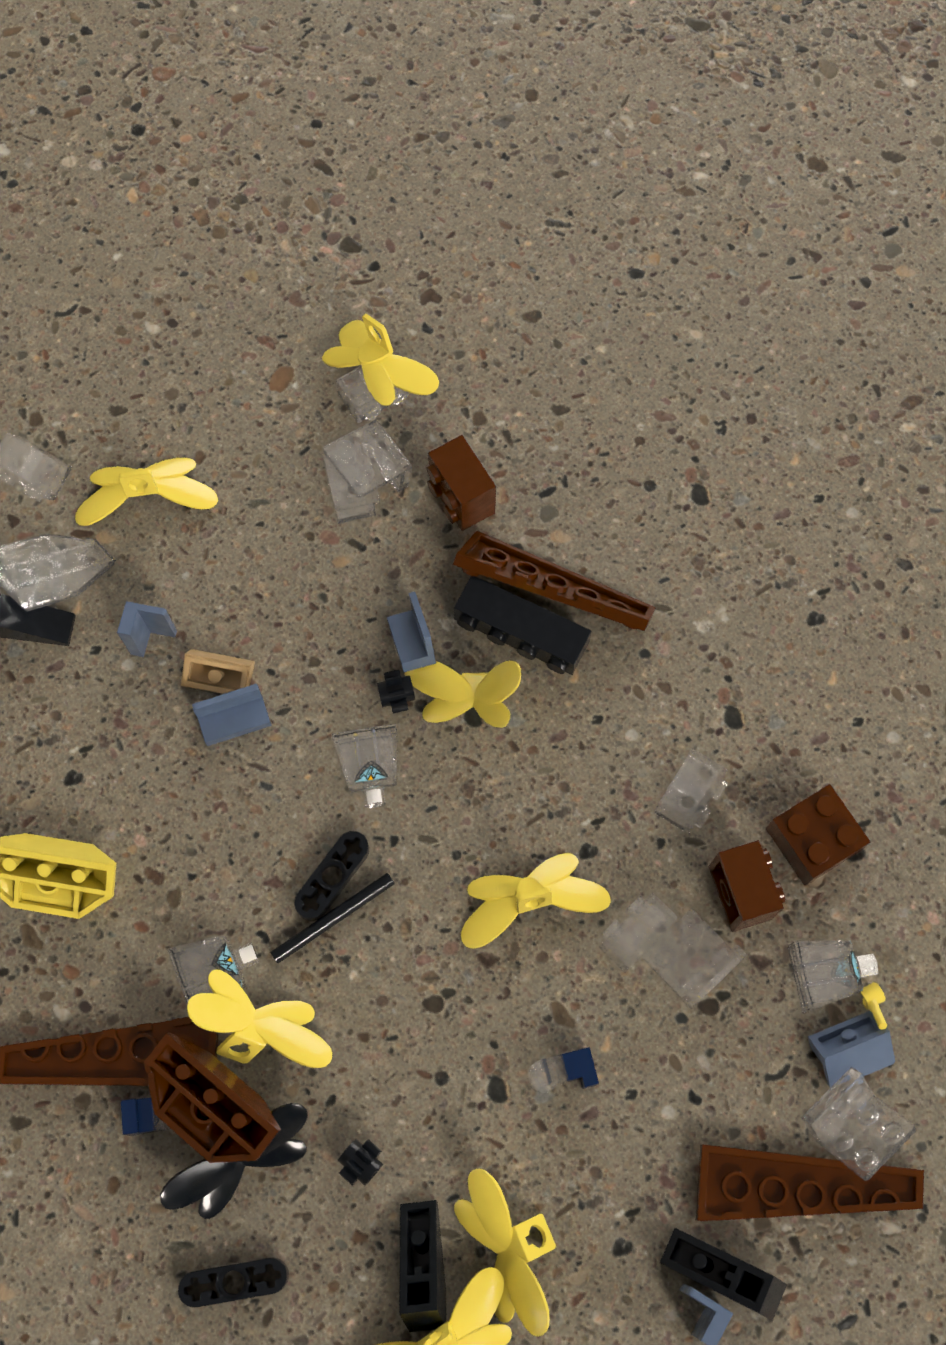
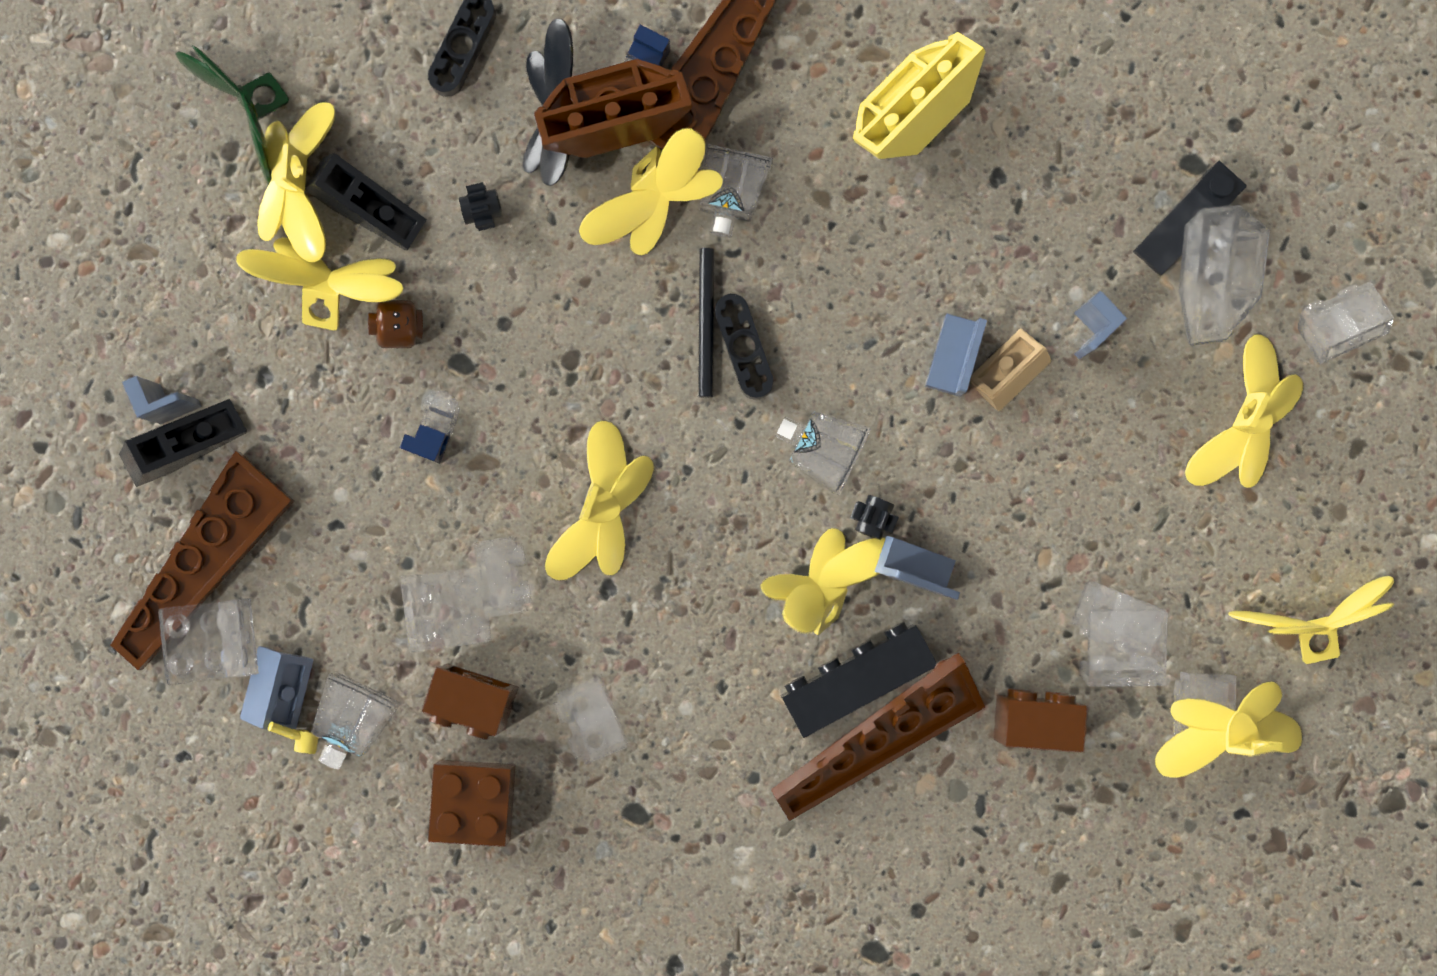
camera: 125 degrees right, 15 degrees up
(237, 339) = (1353, 609): none -> light yellow piece
(504, 1161) = (396, 324): none -> reddish brown head

